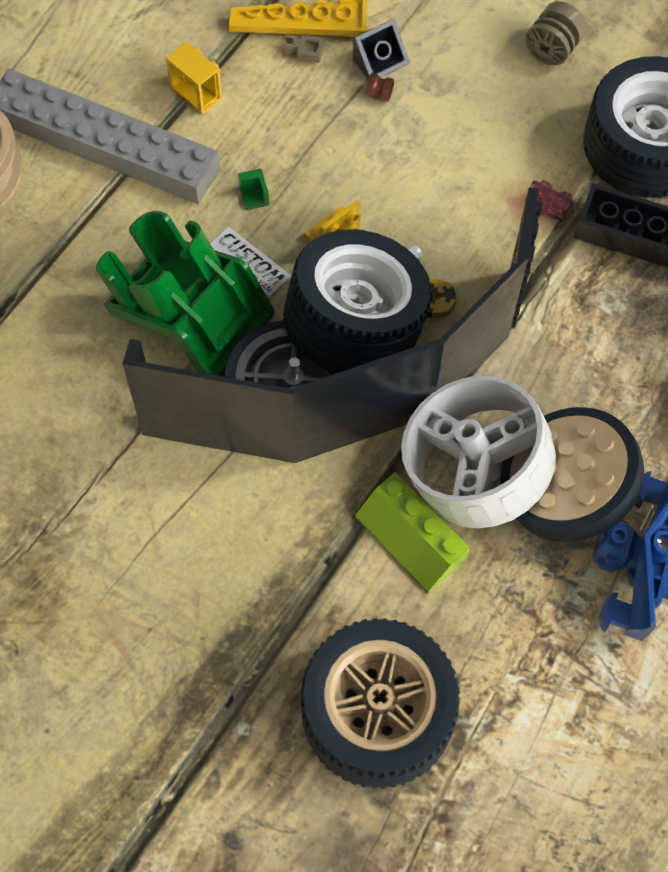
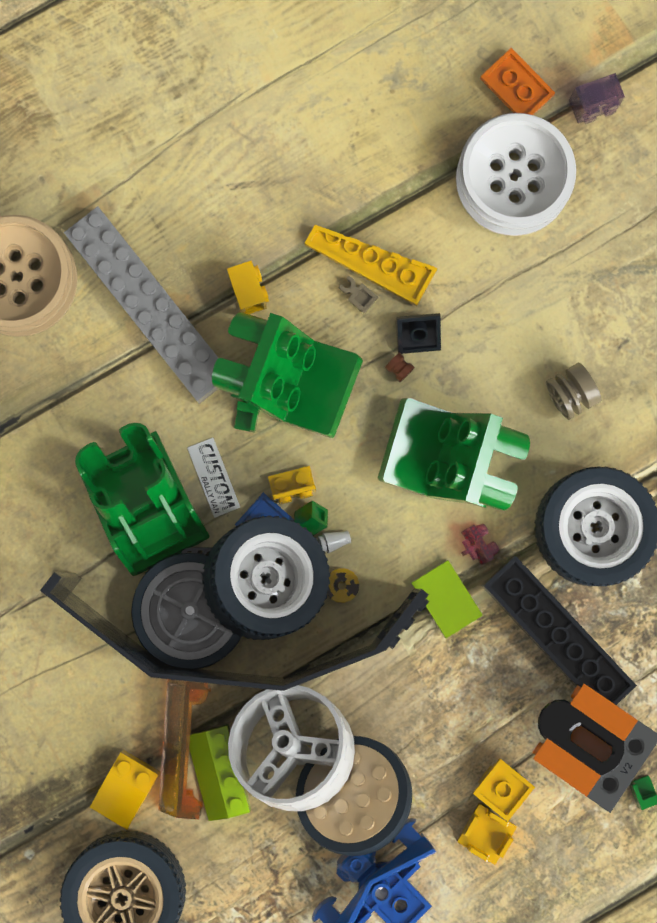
camera: 25 degrees right, 20 degrees up
(292, 133) = (289, 374): none -> green piece
(316, 597) = (125, 789): none -> yellow slope
(374, 564) = (174, 795): none -> windscreen
(475, 130) = (450, 454): none -> green piece
(555, 267) = (448, 599): none -> lime tile

